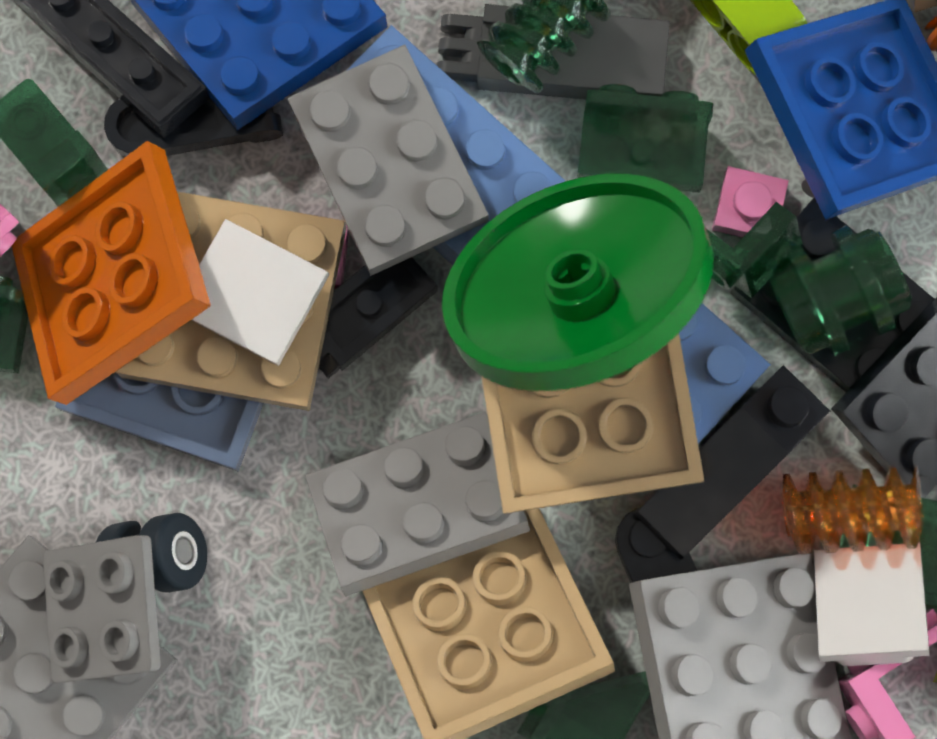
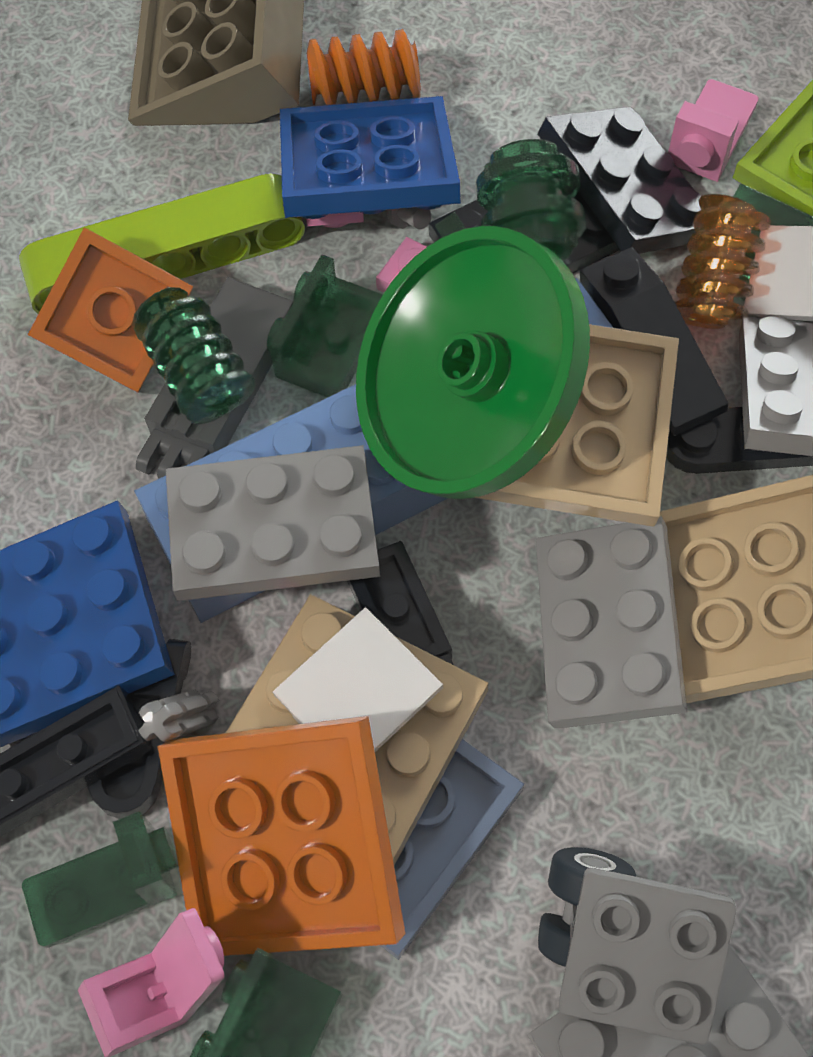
camera: 70 degrees left, 15 degrees down
(197, 148) = (178, 715): none -> light grey axle

